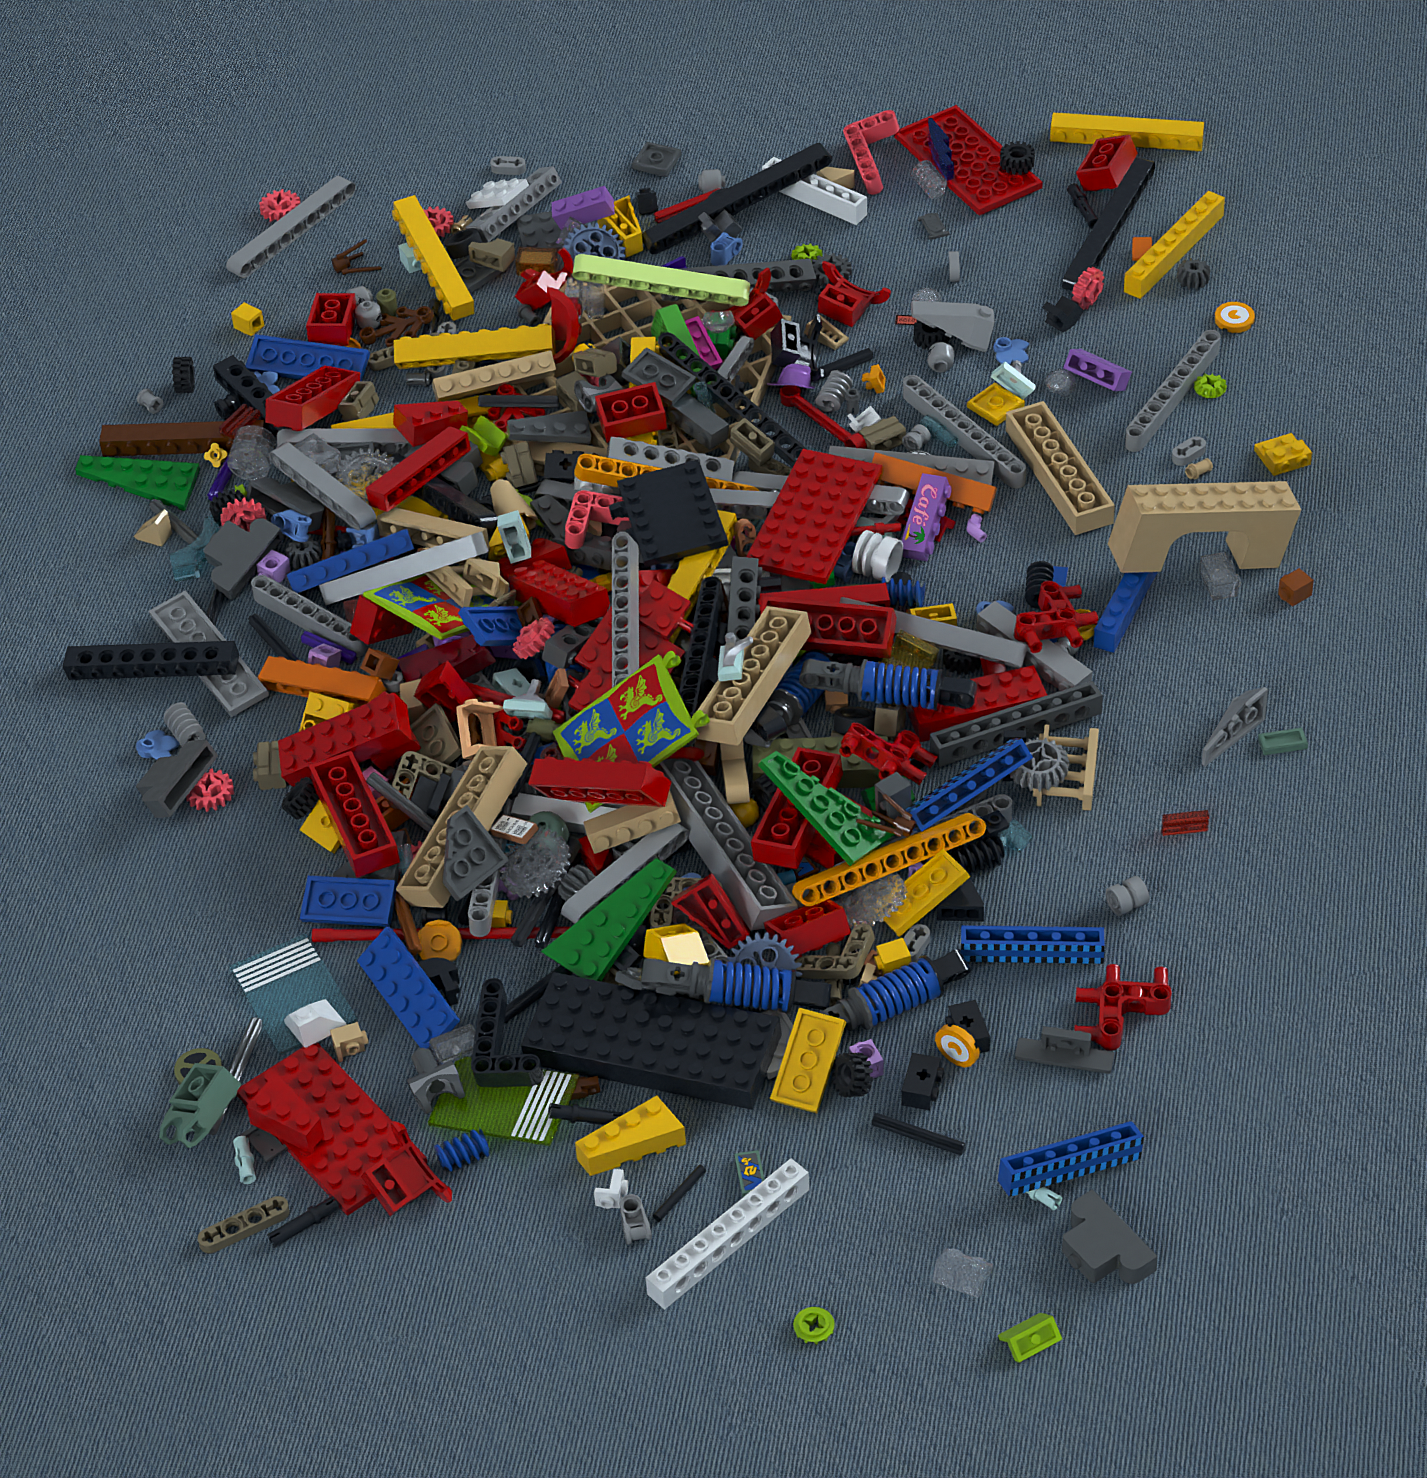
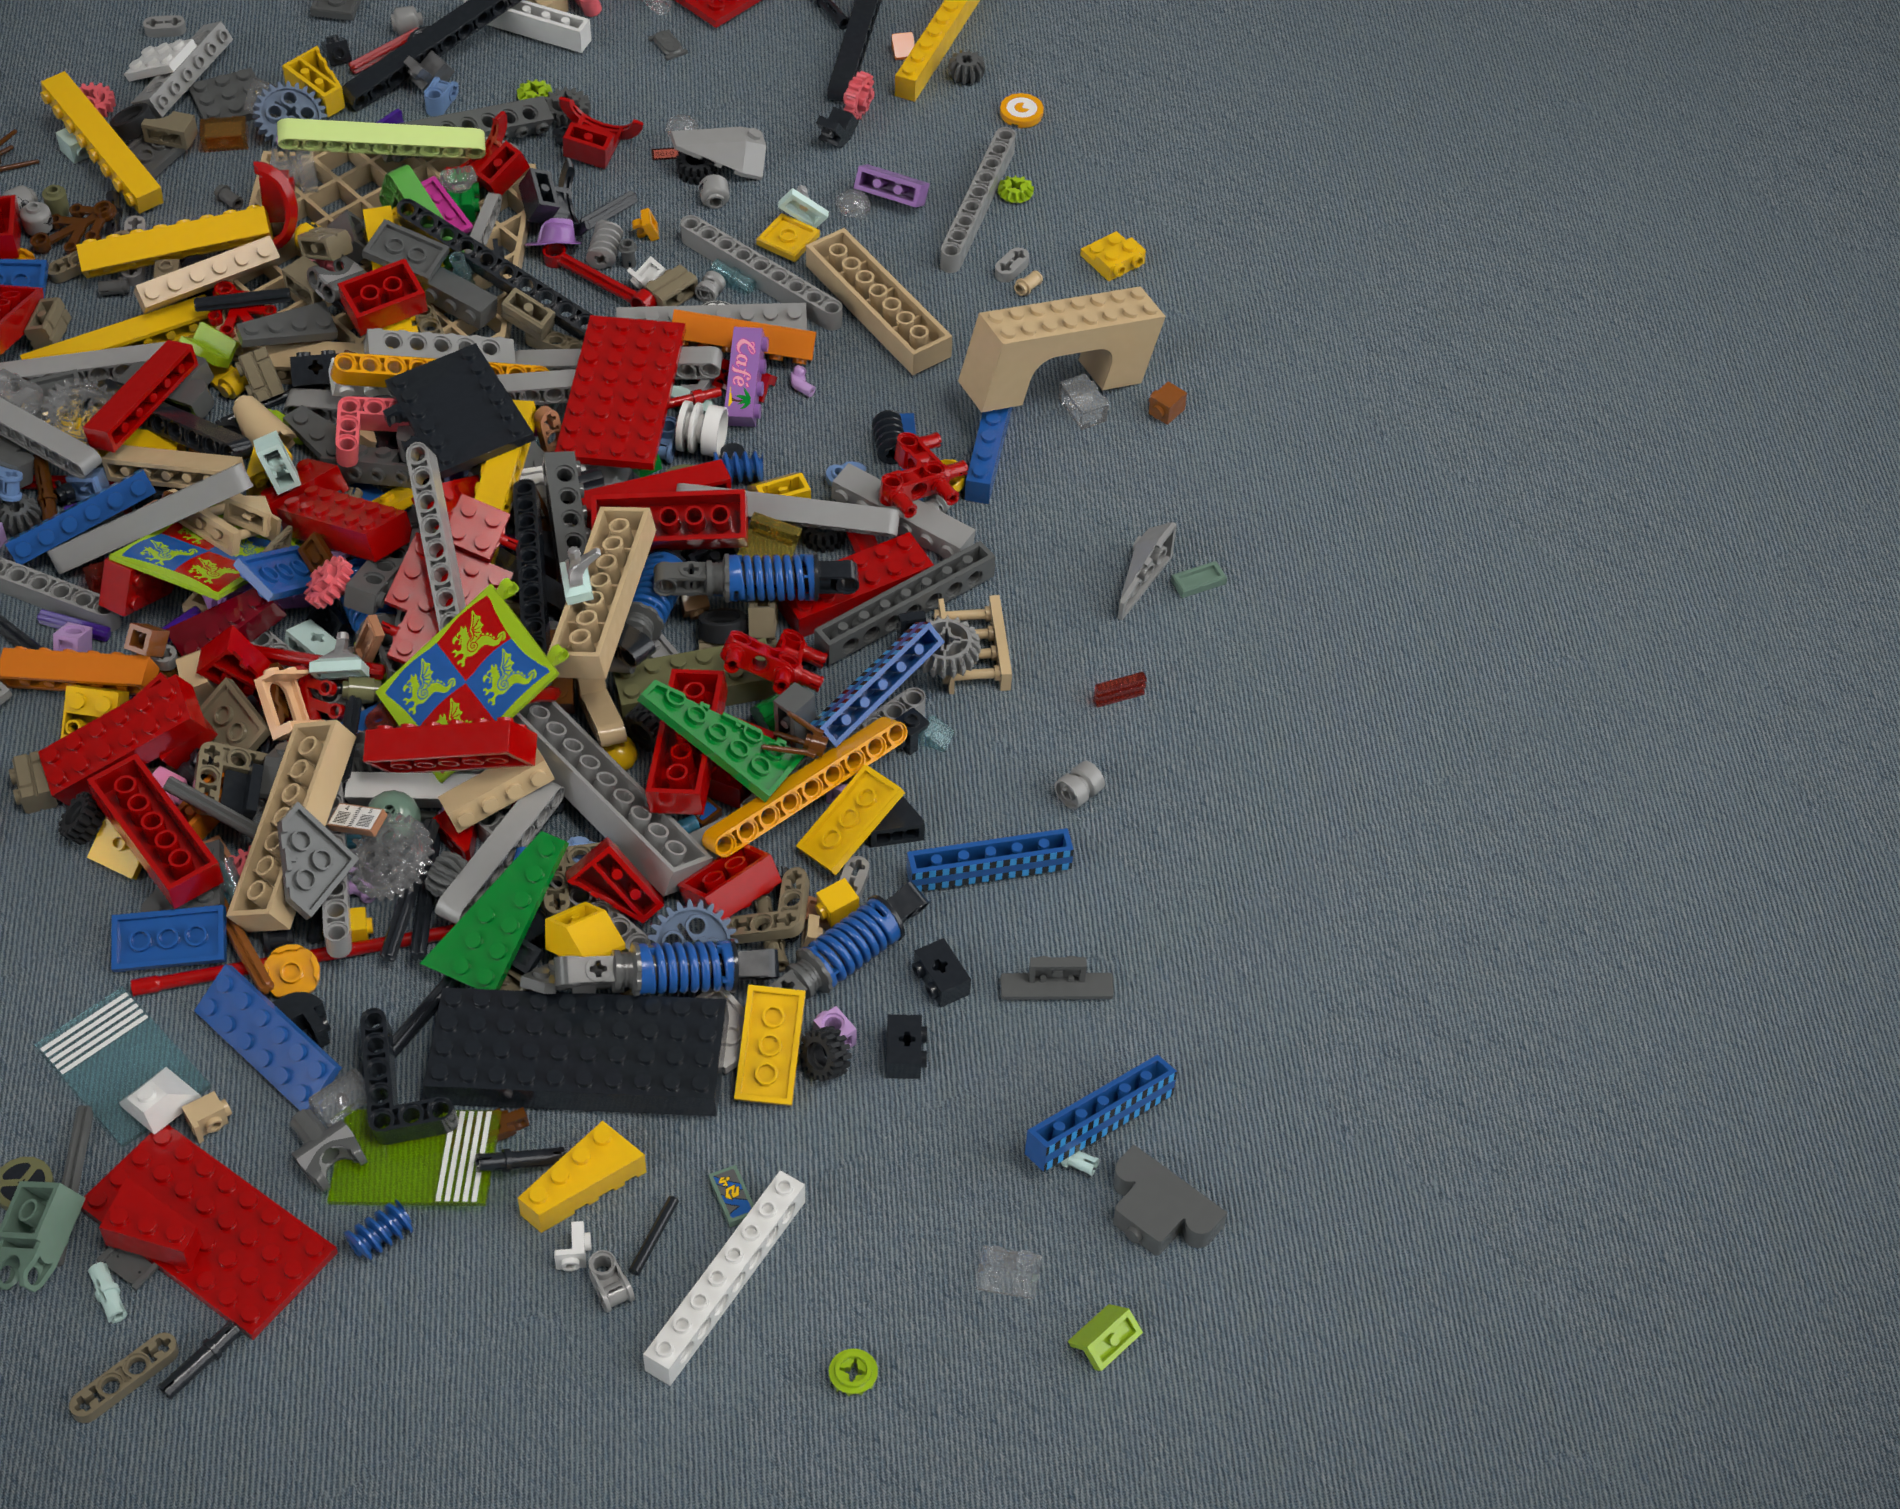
camera: 20 degrees left, 5 degrees up
(403, 1175) = (315, 1279): red piece -> none
(426, 420) = (138, 336): red wedge -> none
(461, 224) = (124, 101): tan pin -> none
(534, 289) = (235, 162): red piece -> none
(584, 206) = (268, 64): medium lavender brick -> none
(831, 330) = (581, 175): tan slope -> none
(873, 900) = (799, 837): clear gear -> none
(919, 1134) = (915, 1110): black axle -> none
(954, 268) = (703, 87): light grey beam -> none
(957, 1045) = (936, 997): light orange tile -> none
(980, 854) = (904, 761): black piece -> none
(1010, 350) = (789, 175): medium blue plate -> none
(1120, 997) = (1110, 905): red pin -> none

